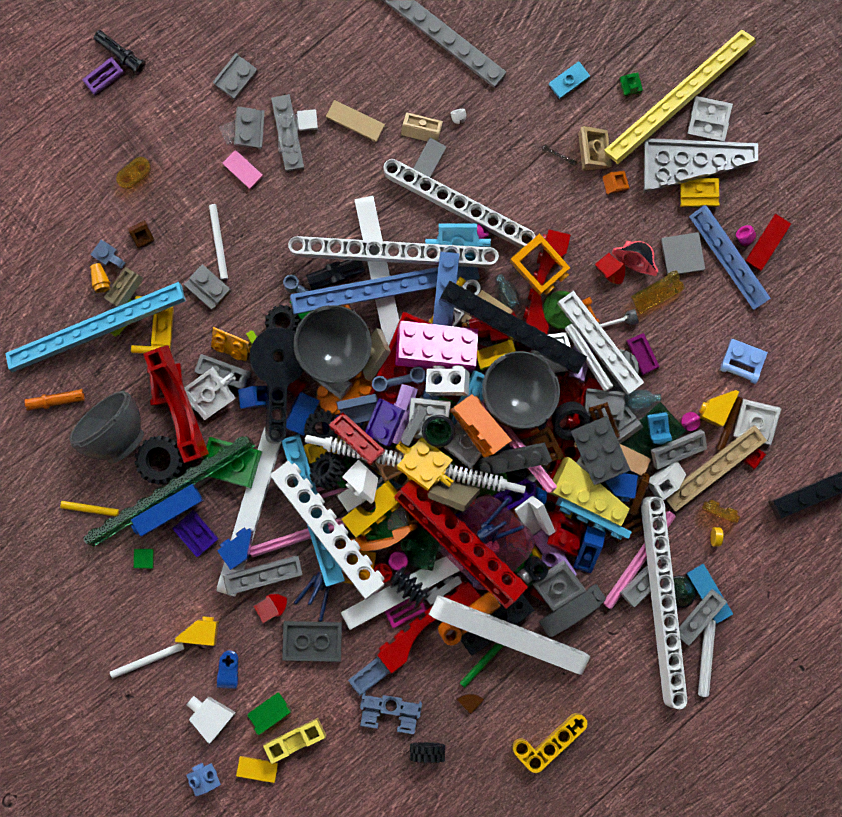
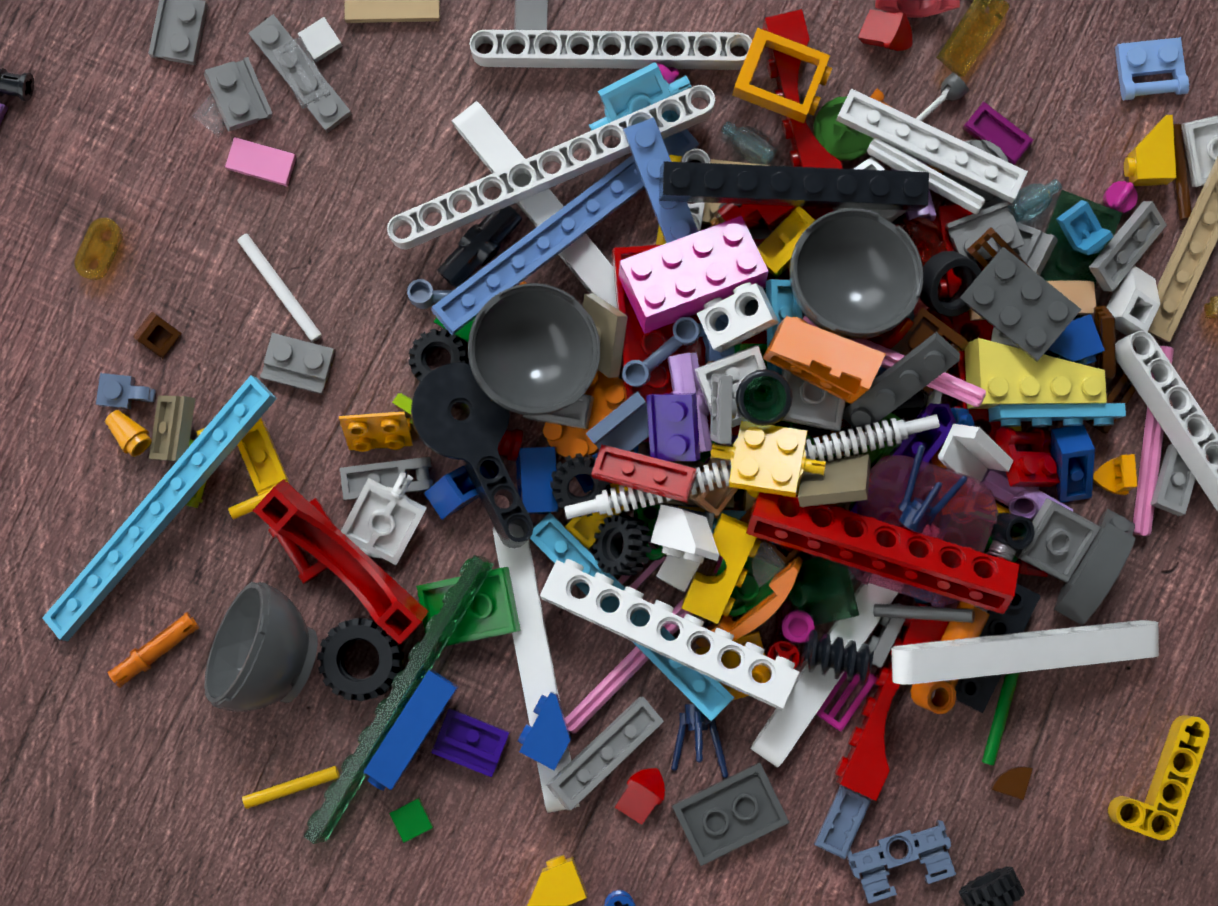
camera: 20 degrees left, 0 degrees up
(466, 587) = (924, 613): none -> dark grey bar
(609, 568) = (1117, 475): none -> light orange tile

